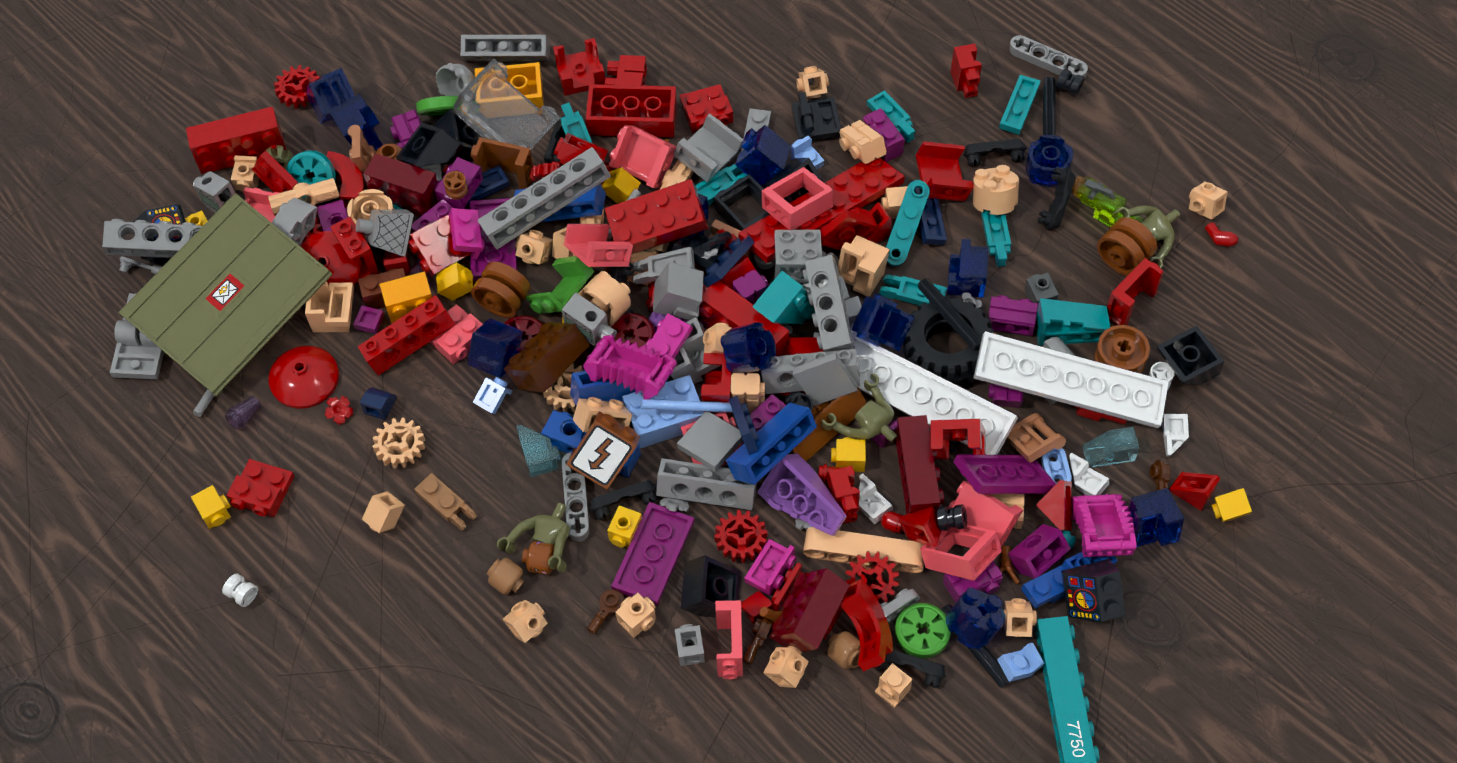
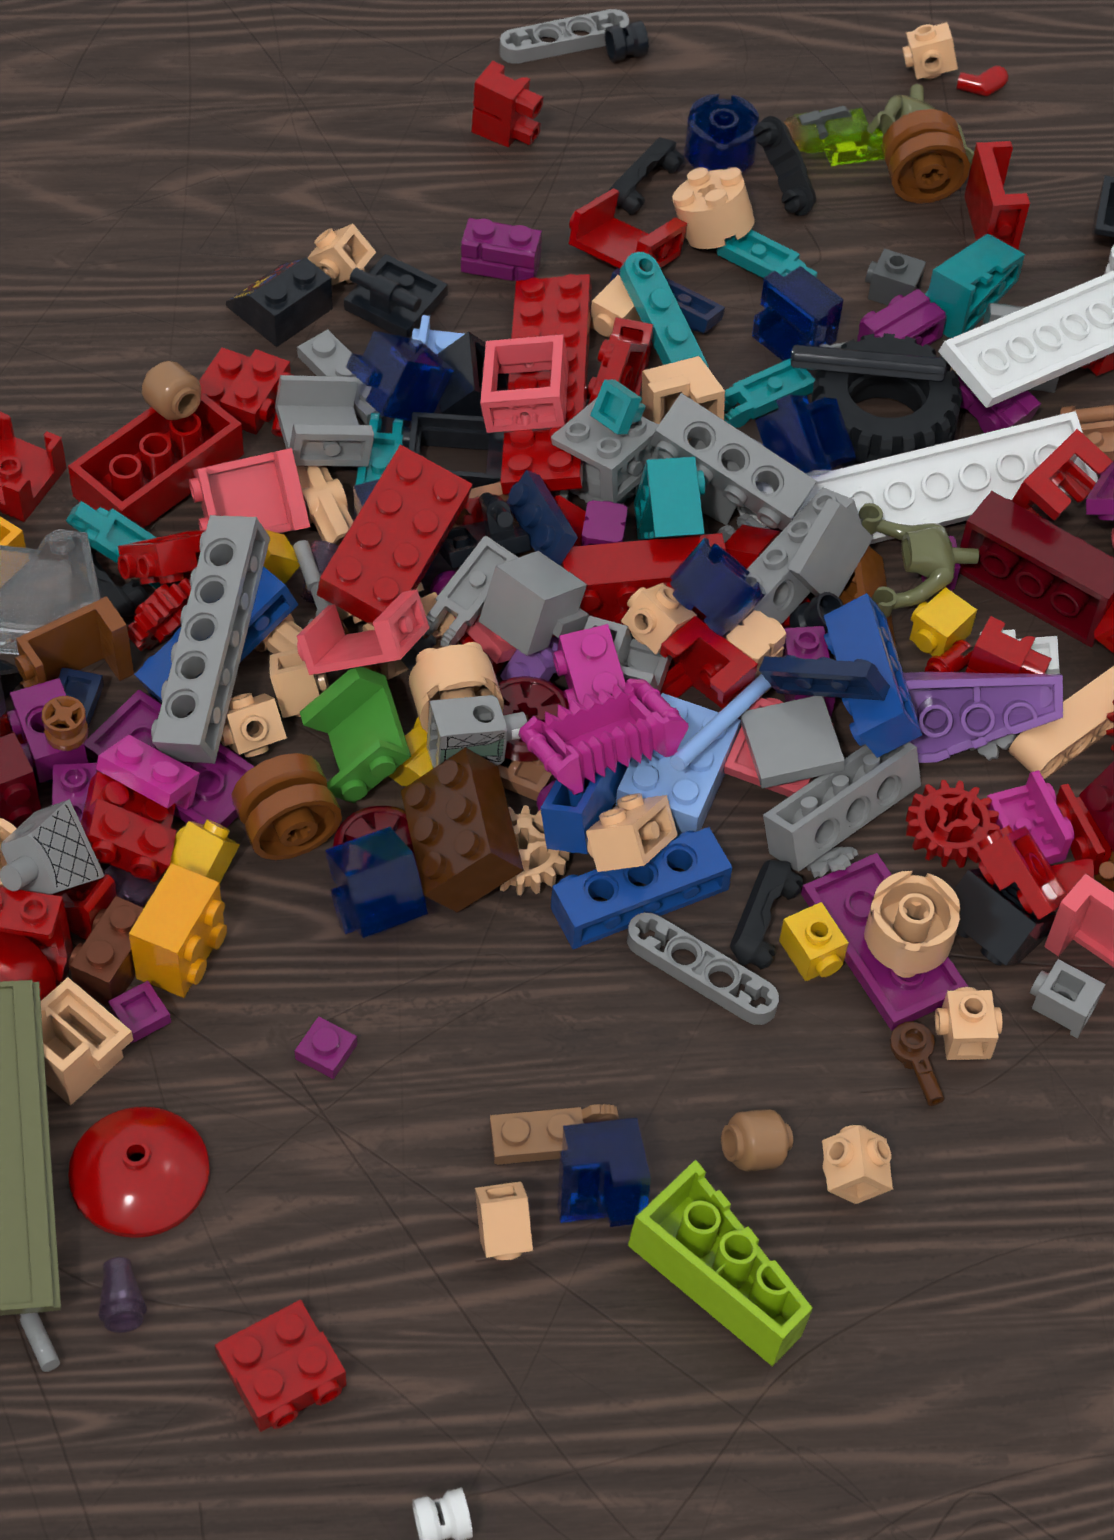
camera: 55 degrees left, 5 degrees down
(212, 507) = (251, 1458): yellow brick -> none
(338, 409) = (256, 1161): red plant -> none
(377, 403) = (298, 1101): dark blue brick -> none
(397, 452) = (376, 1115): light nougat gear -> none
(406, 335) = (234, 975): red brick -> none
(413, 394) = (326, 1047): none -> magenta plate
(433, 597) = (719, 1265): none -> lime wedge
(434, 530) = (603, 1172): none -> clear blue plate
(456, 341) = (283, 922): coral plate -> none
(492, 394) = (437, 947): bracket -> none
(537, 451) = (586, 959): clear light blue slope -> none
(537, 557) = (766, 1076): dark orange head -> none
(547, 530) = (736, 1040): olive piece -> none
(603, 450) = (697, 867): panel -> none
(629, 71) = (85, 420): red hips -> none
(655, 566) = (912, 923): none -> light nougat brick
(656, 84) = (171, 390): none -> medium nougat head
(728, 577) = (1016, 858): none -> red plate
(769, 84) = (284, 300): none -> black slope
(807, 239) = (617, 407): none -> teal tile
(862, 142) = (493, 273): light nougat brick -> none
(891, 523) = (1080, 654): red cylinder -> none
(894, 112) = (450, 219): teal hinge -> none
(1019, 104) = (603, 105): teal plate -> none
(1049, 124) = (640, 89): black axle -> none
(1123, 348) = (1059, 261): dark orange wheel -> none

